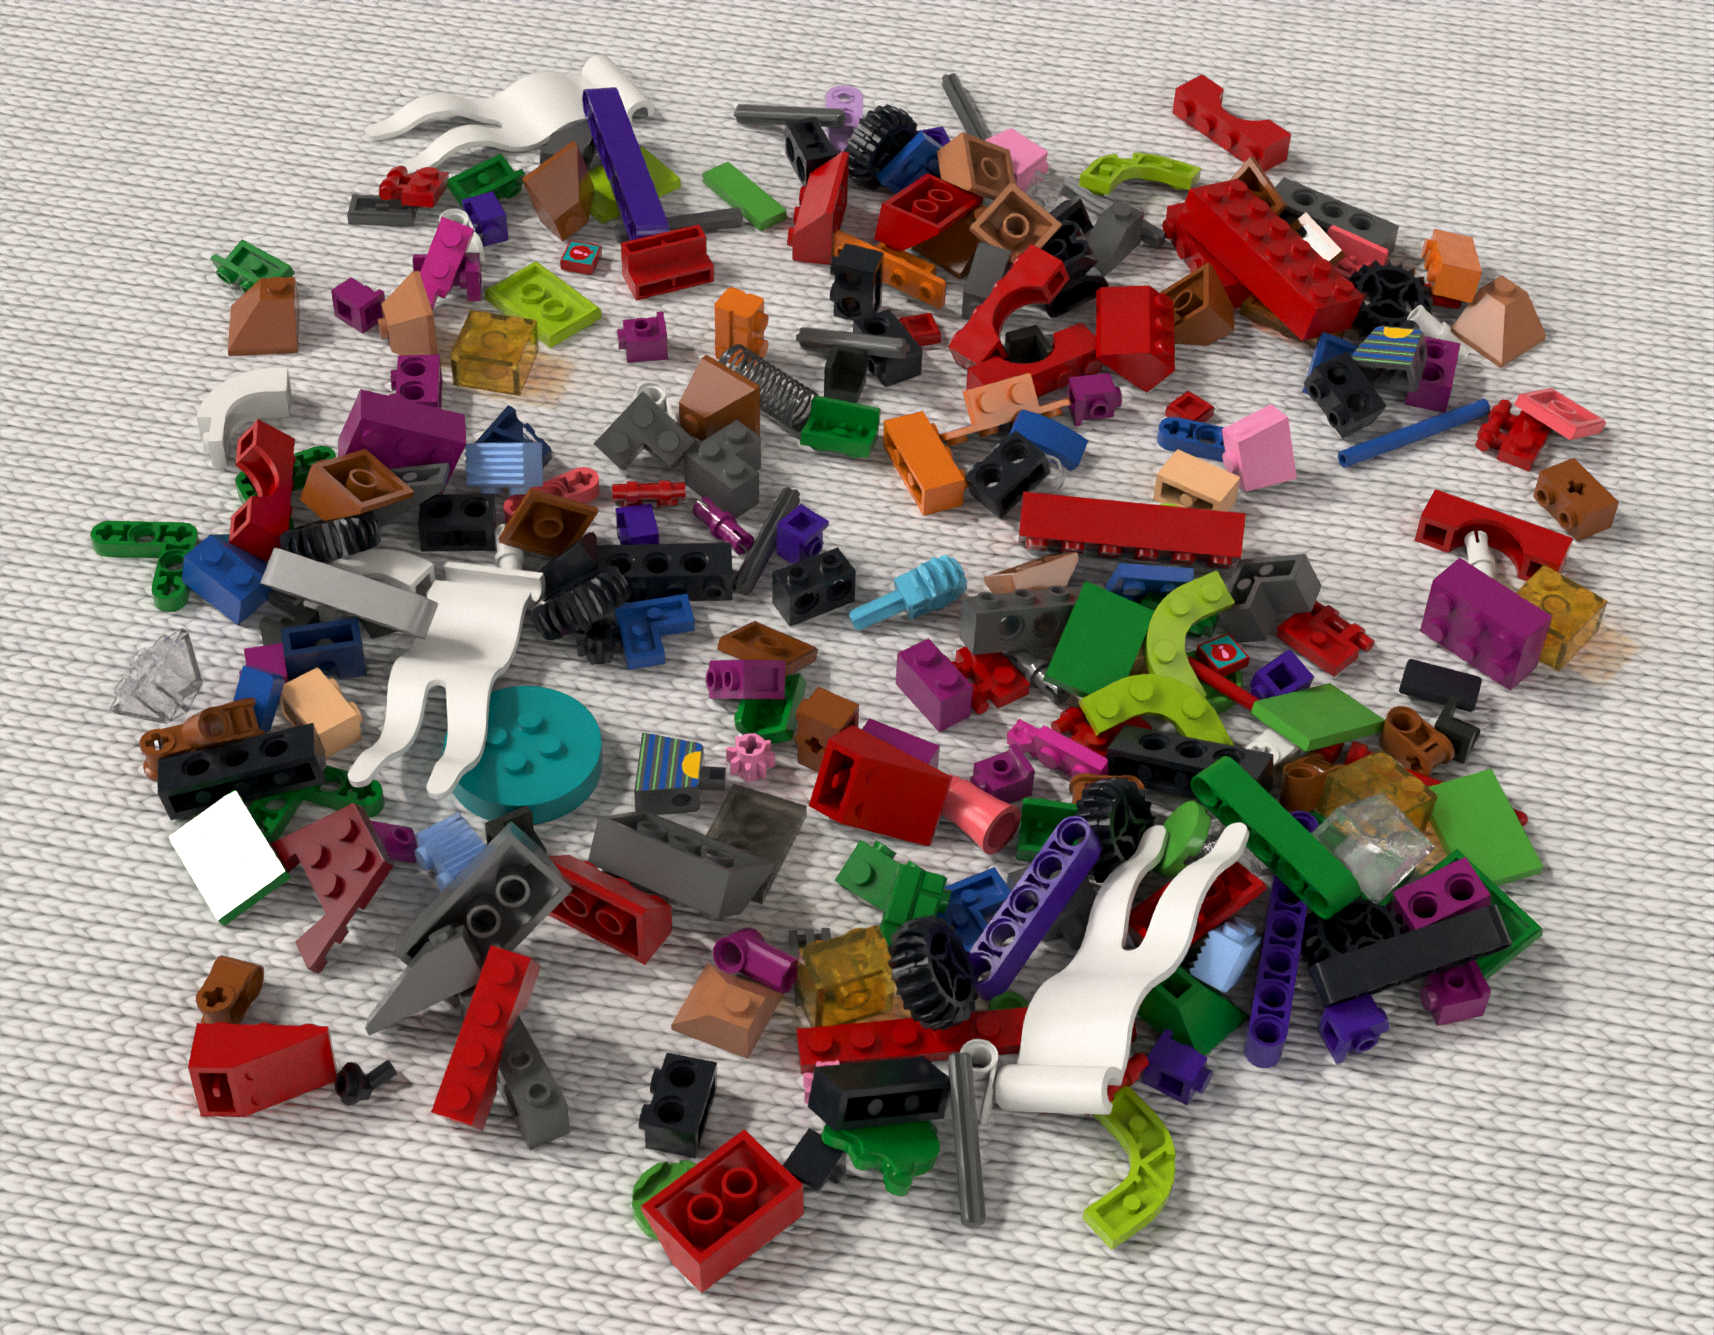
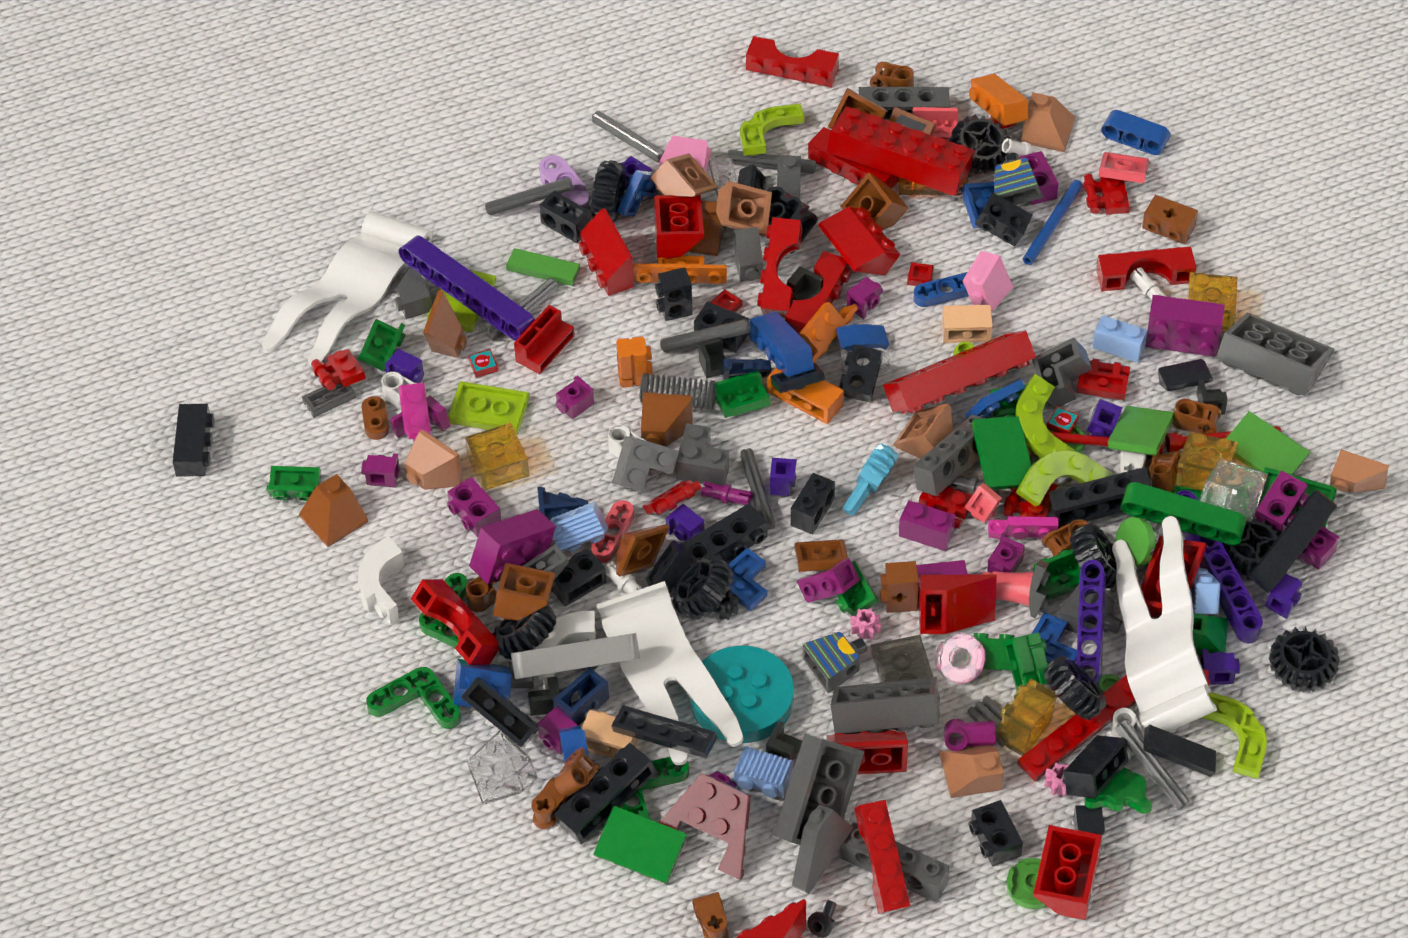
camera: 30 degrees left, 5 degrees up
(193, 179) = (193, 440): none -> black brick
(201, 606) = (500, 712): none -> black brick
(365, 734) = (664, 731): none -> black plate
(399, 258) = (375, 413): none -> dark orange plate
(831, 861) = (960, 658): none -> clear tile
(854, 390) = (738, 367): none -> dark blue wing
(913, 434) = (799, 381): none -> black plate
(929, 391) = (781, 344): none -> blue brick
(997, 836) = (1037, 594): none -> dark grey slope
(1021, 1142) = (1179, 750): none -> black tile
(1027, 694) = (983, 503): none -> coral bracket
(1310, 1141) = (1292, 648): none -> black gear
(1342, 186) = (892, 76): none -> dark orange piece
(1385, 600) = (1120, 338): none -> light blue brick
(1584, 924) = (1358, 473): none -> nougat slope
(1591, 722) = (1274, 353): none -> dark grey slope
(1612, 384) = (1135, 132): none -> blue beam

